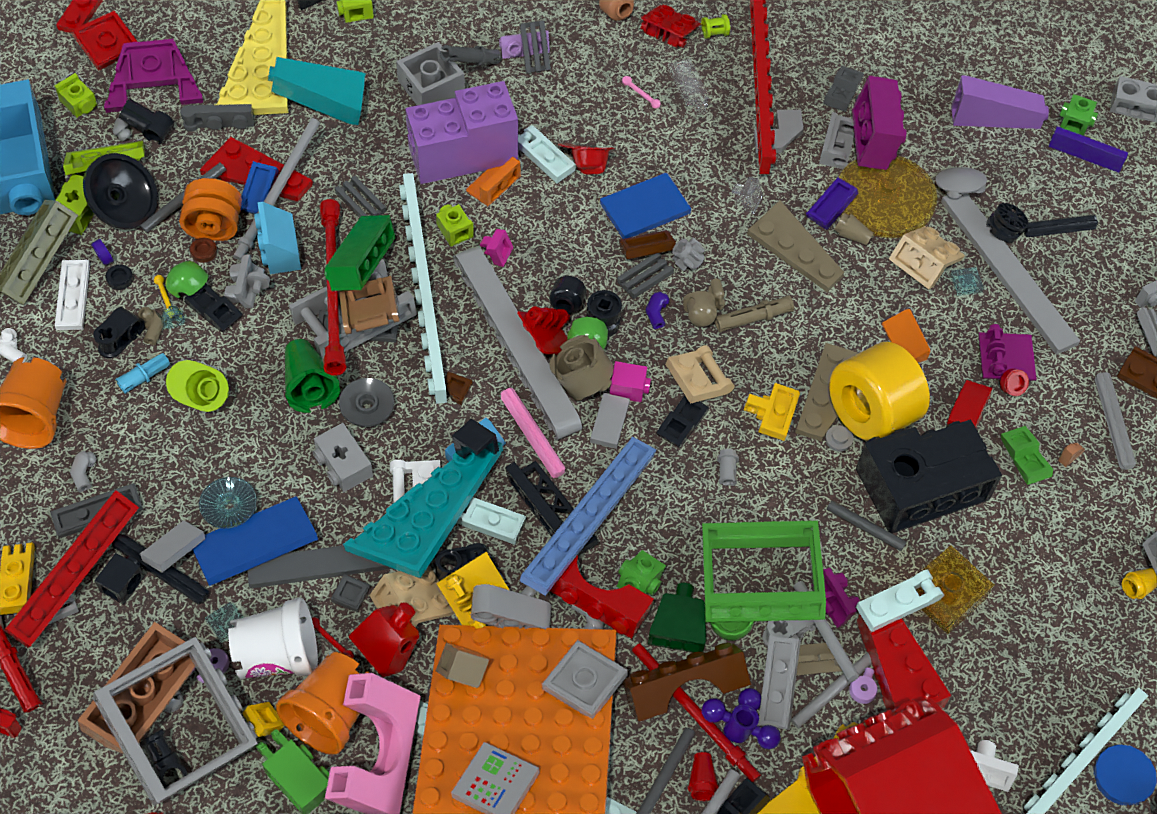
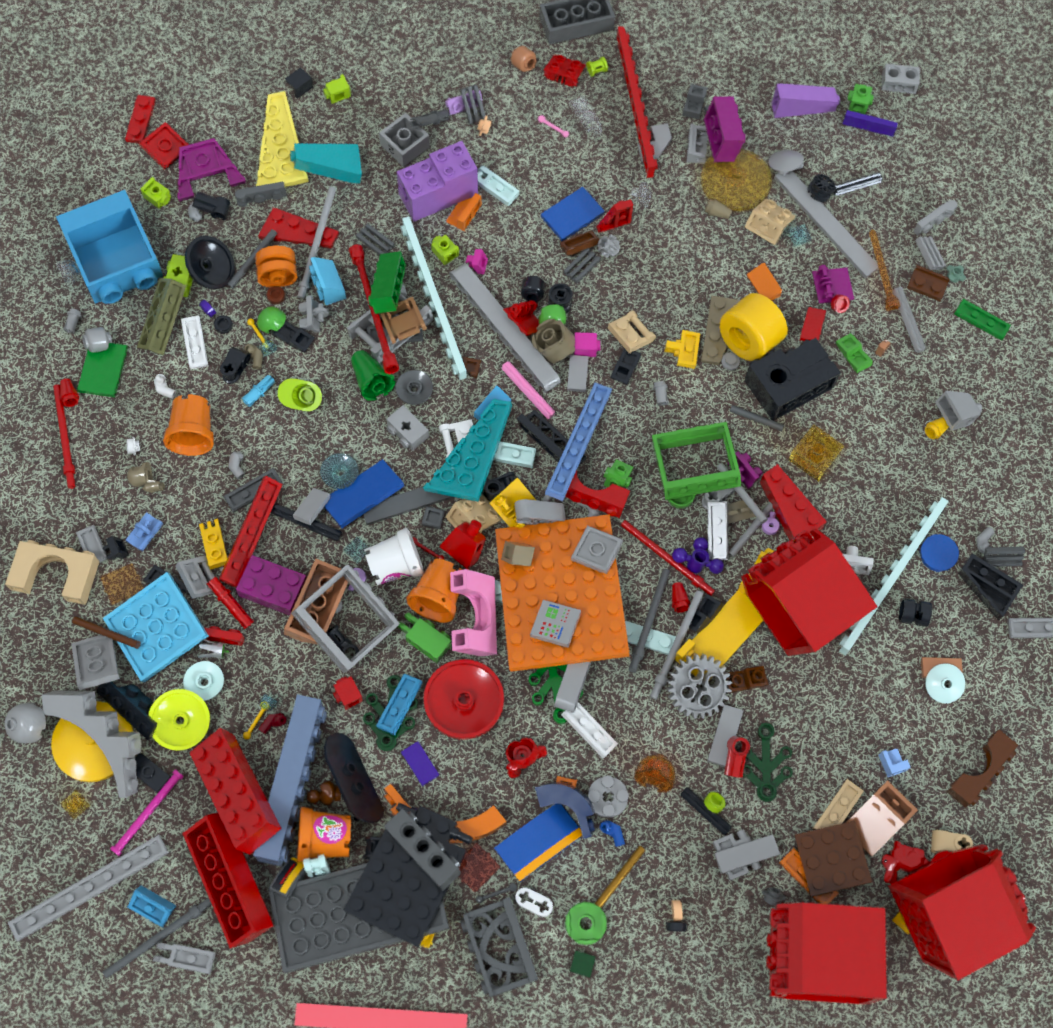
camera: 10 degrees left, 10 degrees up
(77, 650) = (270, 585): none -> magenta brick
(80, 160) = (179, 241): lime wing -> none
(120, 578) = (282, 532): black brick -> none
(257, 186) = (303, 243): blue tile -> none
(263, 718) = (398, 607): yellow tile -> none
(474, 438) = (494, 403): black panel -> none
(545, 76) = (484, 126): none -> light nougat plate
(589, 159) = (526, 184): red piece -> none
(651, 690) = (638, 549): reddish brown arch -> none
(653, 308) = (592, 287): dark purple arm -> none
(679, 621) = (648, 501): dark green torso -> none
(703, 305) = (625, 282): dark tan piece -> none
(707, 215) = (617, 216): none -> red wing
(764, 310) = (666, 279): dark tan pin -> none
(791, 242) = (677, 225): dark tan wing -> none
(832, 203) = (700, 192): dark purple tile -> none
(899, 601) = (786, 467): light aqua plate -> none
(1091, 391) = (892, 302): none -> clear orange piece

